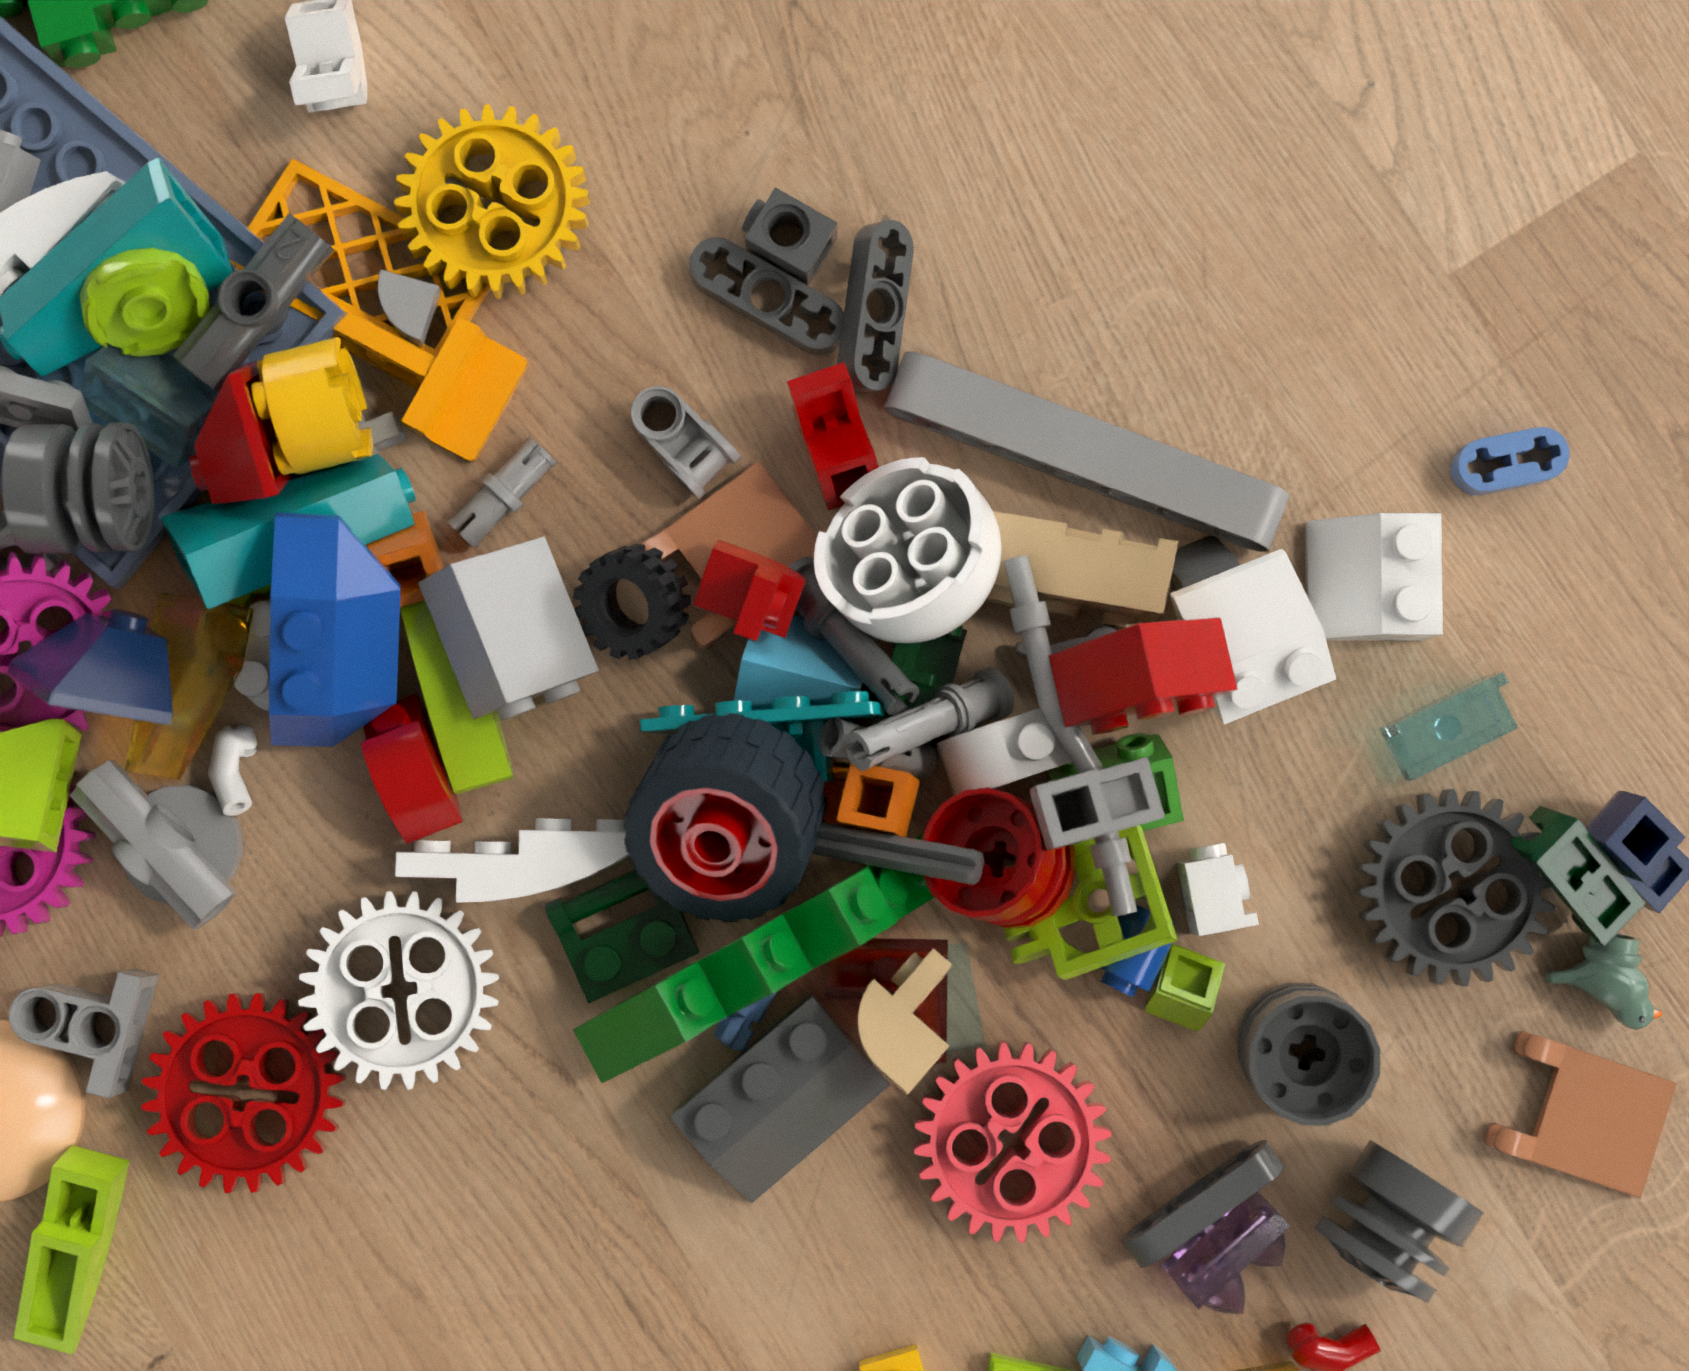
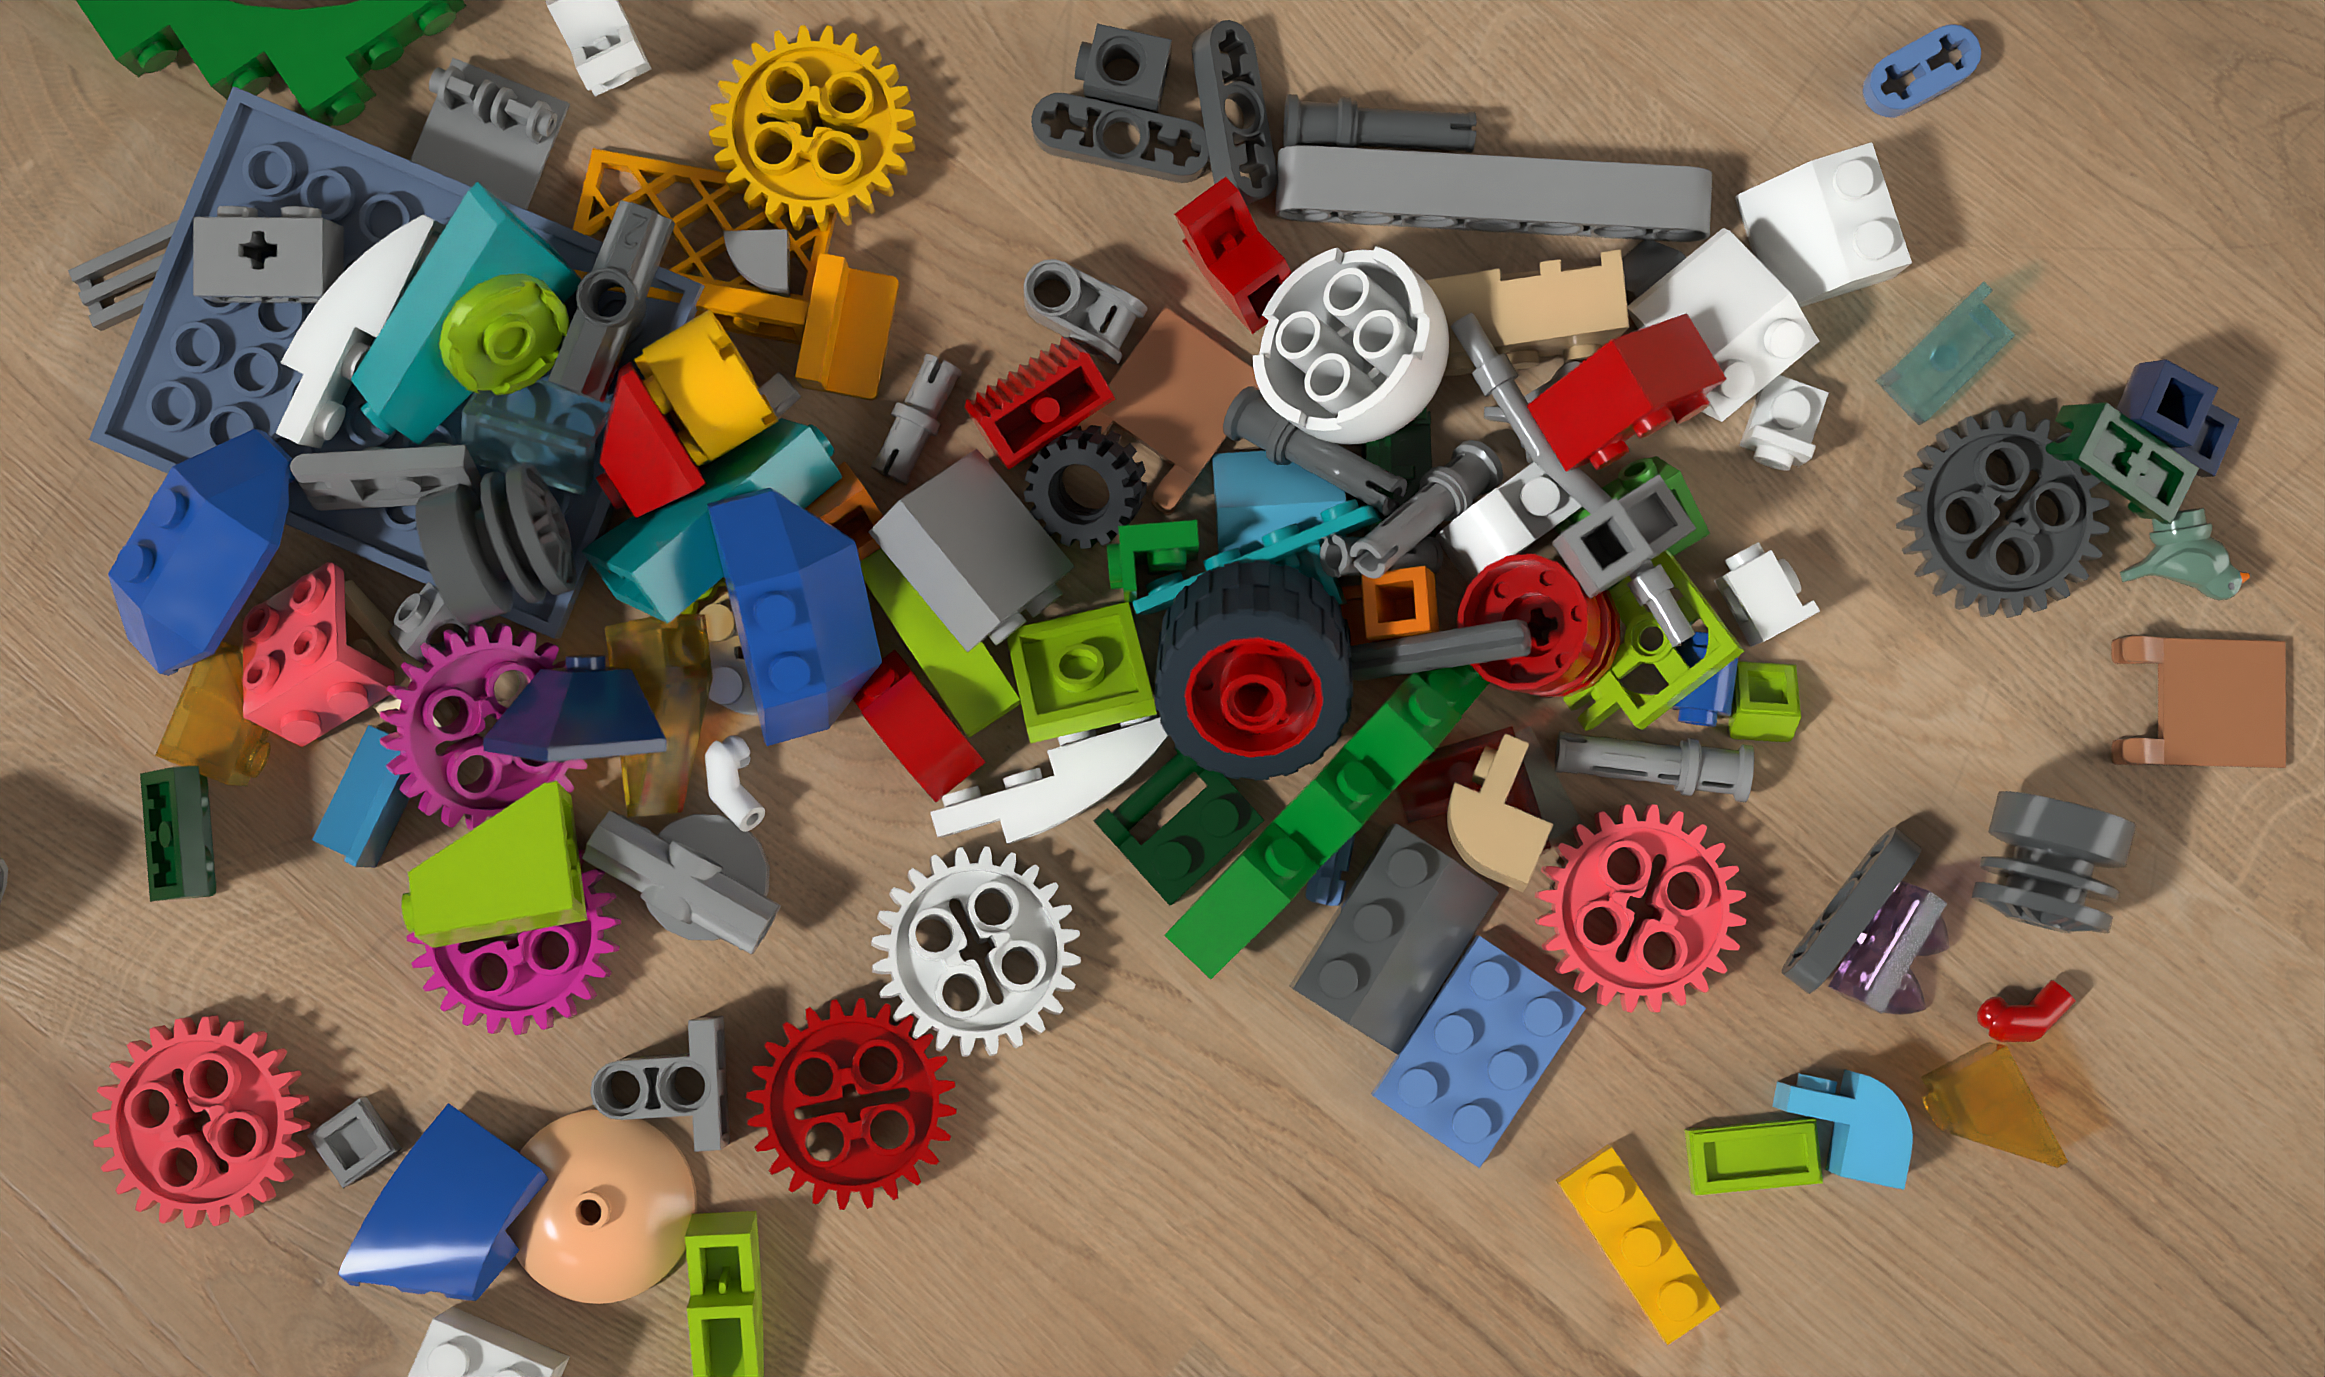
camera: 15 degrees left, 0 degrees up
(202, 115) = (489, 131): none -> light grey hinge
(572, 768) = (1080, 672): none -> lime plate
(613, 512) = (1039, 401): none -> red brick
(679, 679) = (1159, 545): none -> green bracket
(749, 590) = (1203, 436): red brick -> none
(825, 1223) = (1478, 1051): none -> medium blue plate
(973, 349) = (1348, 125): none -> dark grey pin
(1093, 1024) = (1684, 766): none -> light grey pin
(1283, 741) = (1784, 423): none -> white bracket
(1324, 1083) = (1946, 732): dark grey wheel -> none

